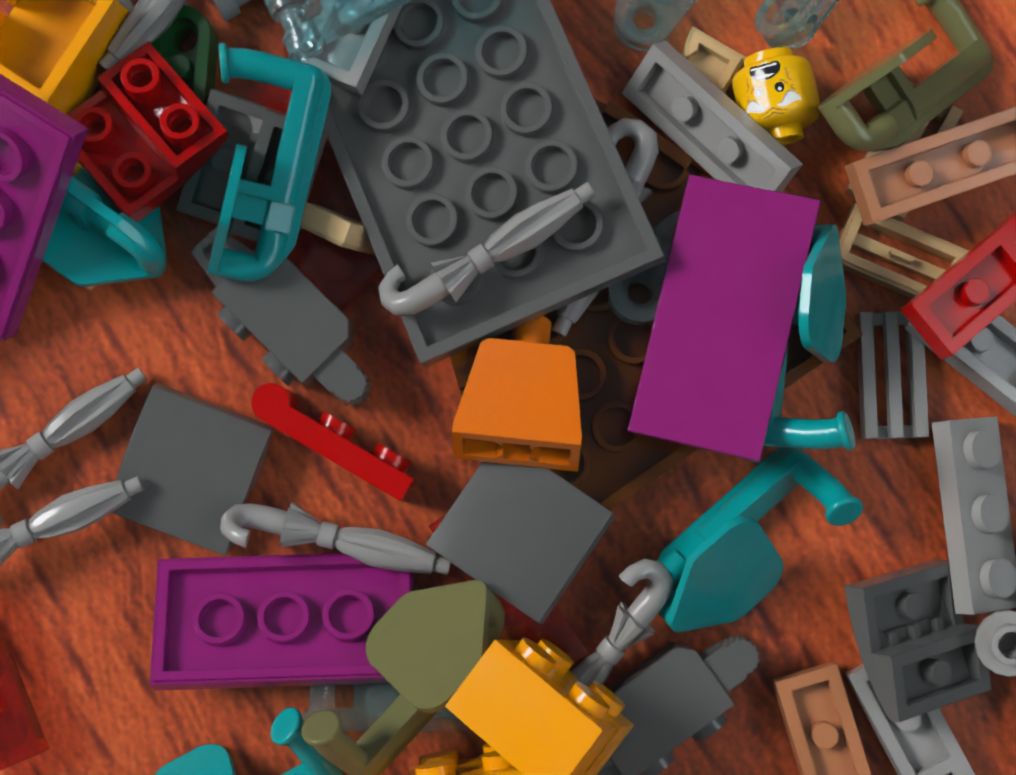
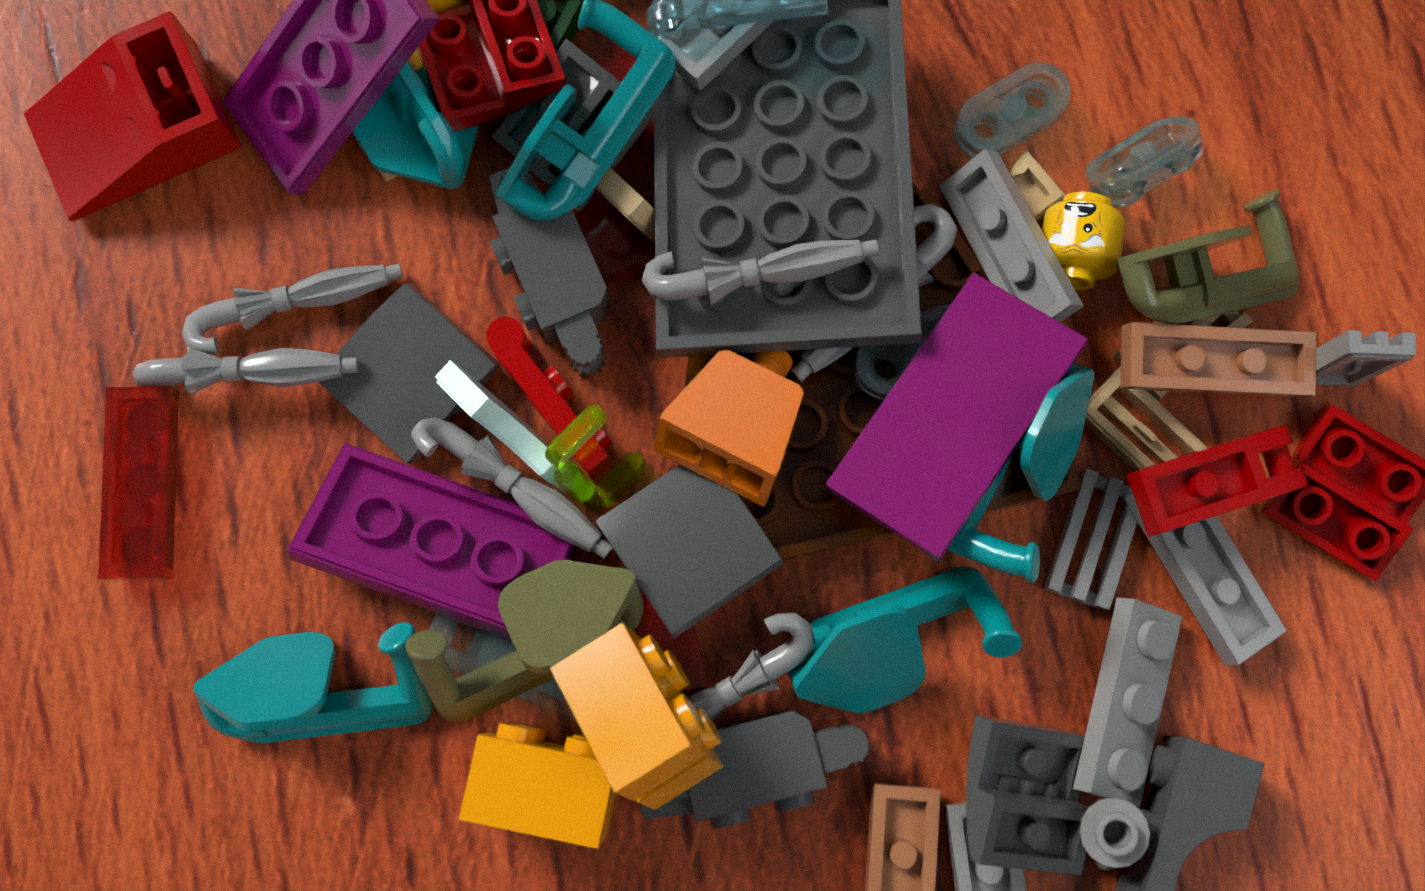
camera: 20 degrees right, 5 degrees down
(308, 486) = (497, 418): none -> light aqua tile
(388, 511) = (573, 479): none -> clear neon green piece

